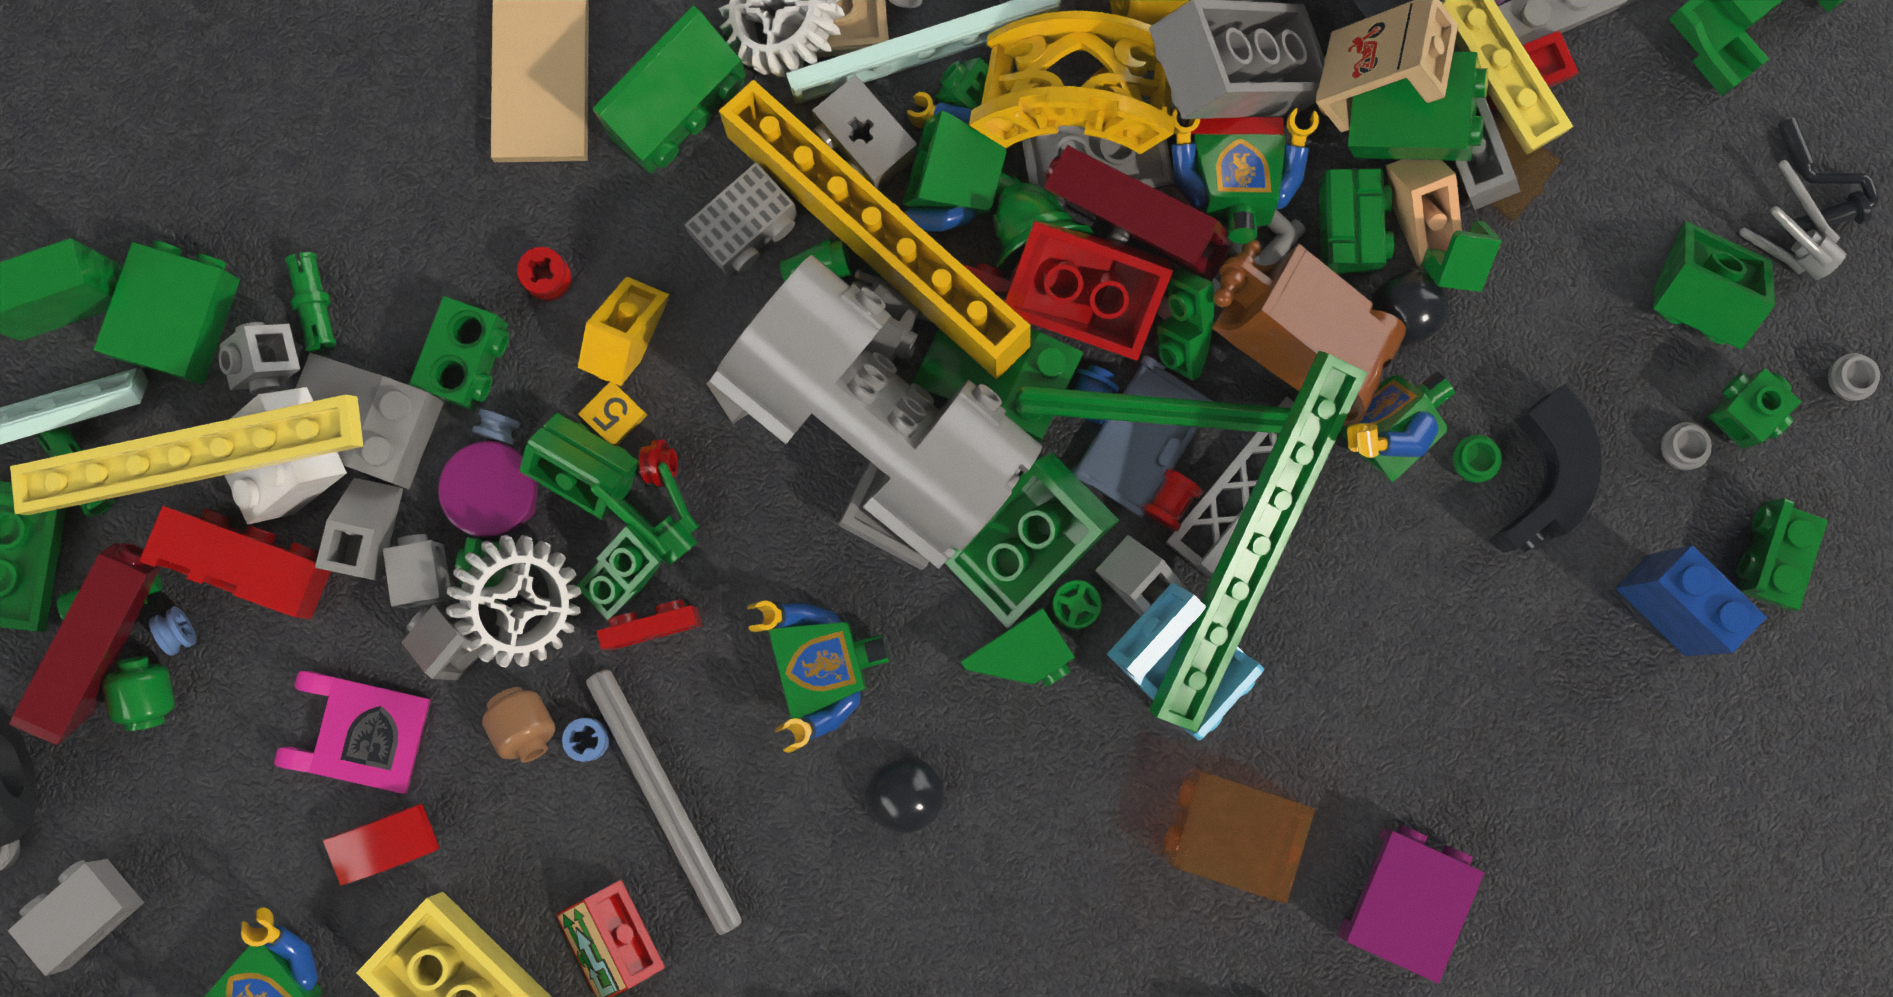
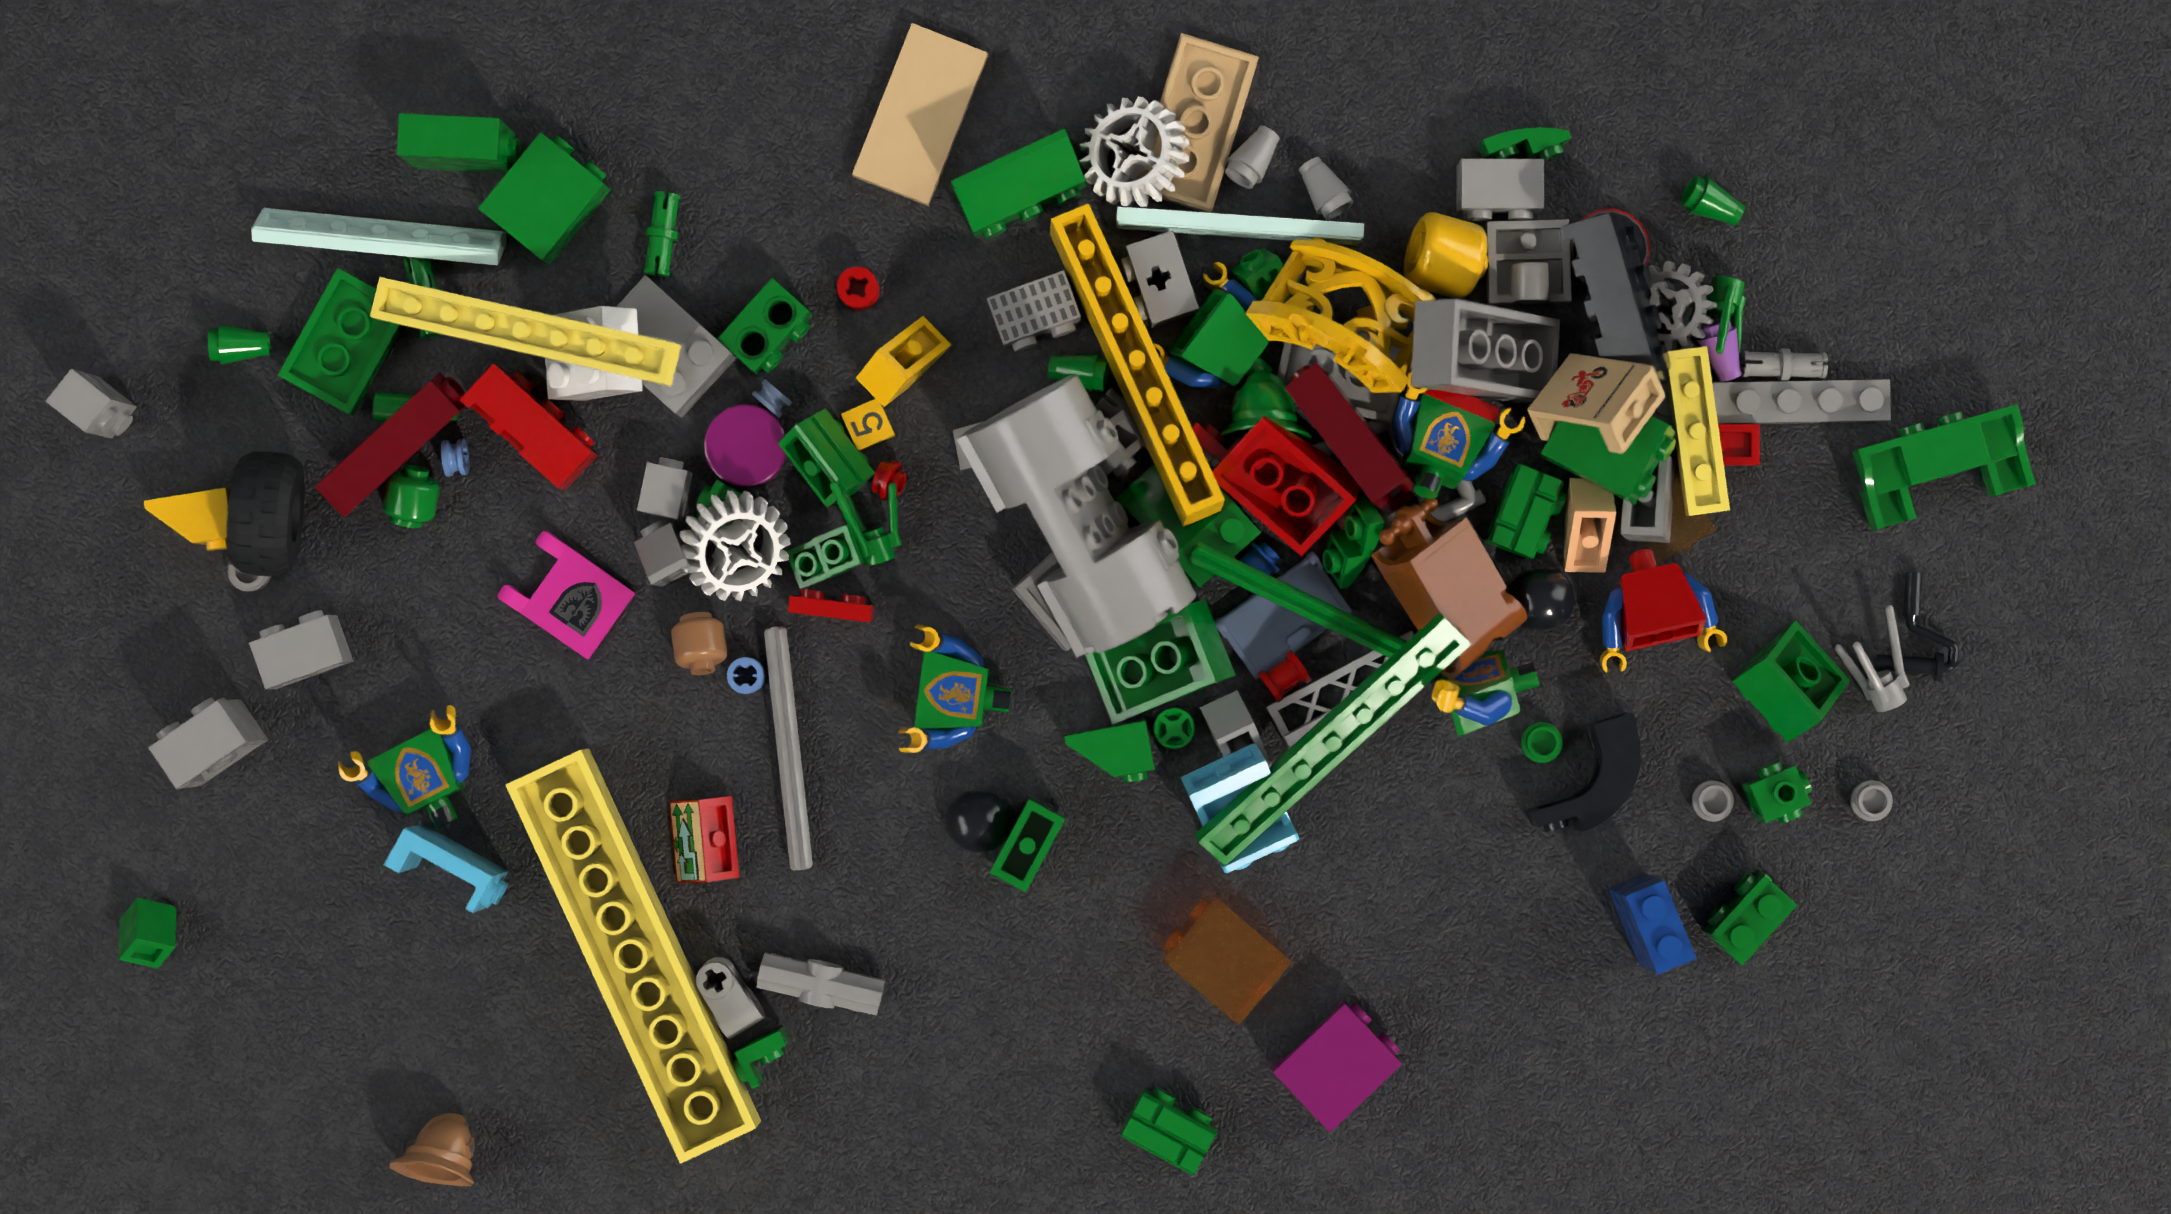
camera: 20 degrees right, 5 degrees up
(258, 357) = (606, 266): light grey brick -> none
(360, 530) = (634, 438): light grey slope -> none
(381, 844) = (556, 692): red slope -> none
(969, 799) = (1027, 844): none -> green brick
(1466, 259) = (1598, 581): green panel -> none
(1541, 264) = (1656, 608): none -> red torso

